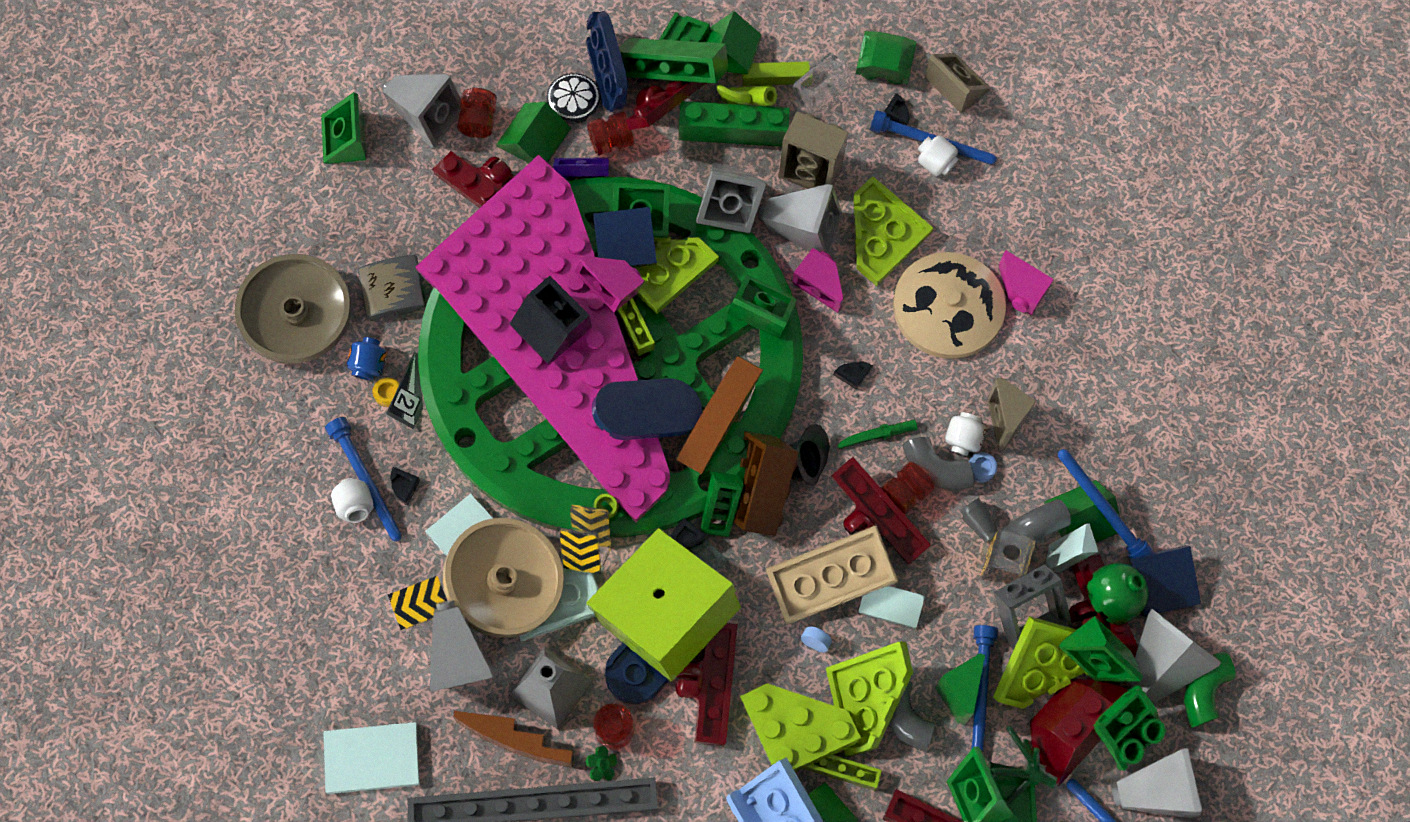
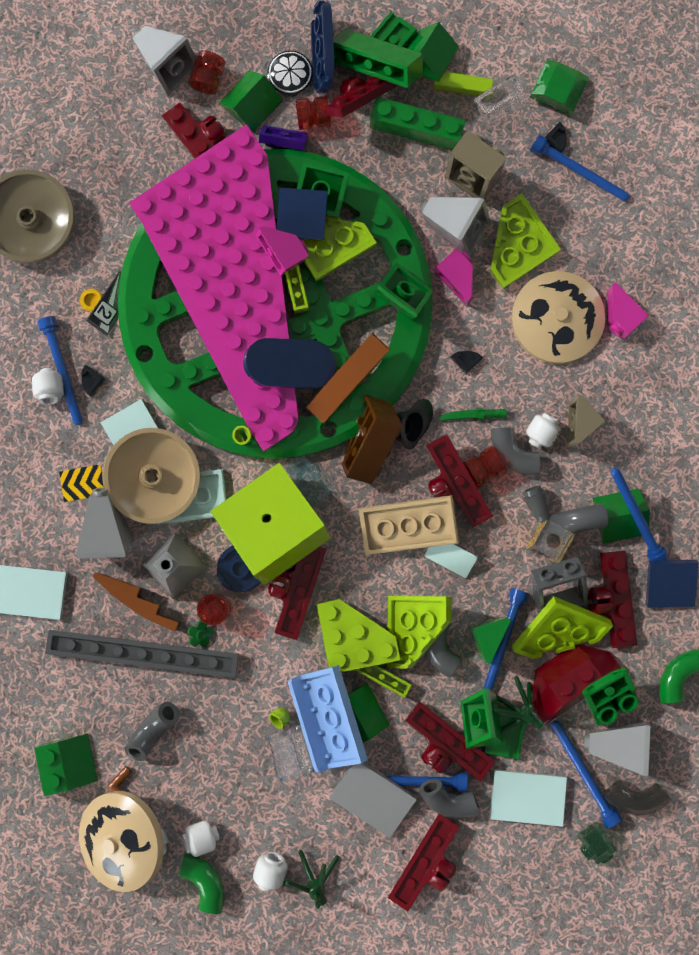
camera: 15 degrees right, 15 degrees up
(344, 132) = (96, 68): green slope -> none
(366, 359) = (79, 271): blue head -> none
(391, 287) = (110, 212): slope -> none
(550, 320) = (225, 274): black slope -> none
(588, 541) = (225, 461): piece -> none
(688, 535) = (301, 469): black tile -> none
(730, 199) = (398, 192): light grey slope -> none
(733, 492) = (338, 435): green slope -> none
(758, 96) = (444, 104): lime plant -> none
(816, 639) = (385, 572): light blue tile -> none
(937, 155) = (580, 185): white head -> none
(955, 80) = (613, 119): dark tan slope -> none
(983, 466) = (550, 459): light blue tile -> none
(1071, 549) = (602, 544): light aqua slope -> none
(1101, 653) = (605, 635): green slope -> none
(1118, 592) = (630, 587): green cylinder -> none
(1169, 658) = (655, 647): light grey slope -> none

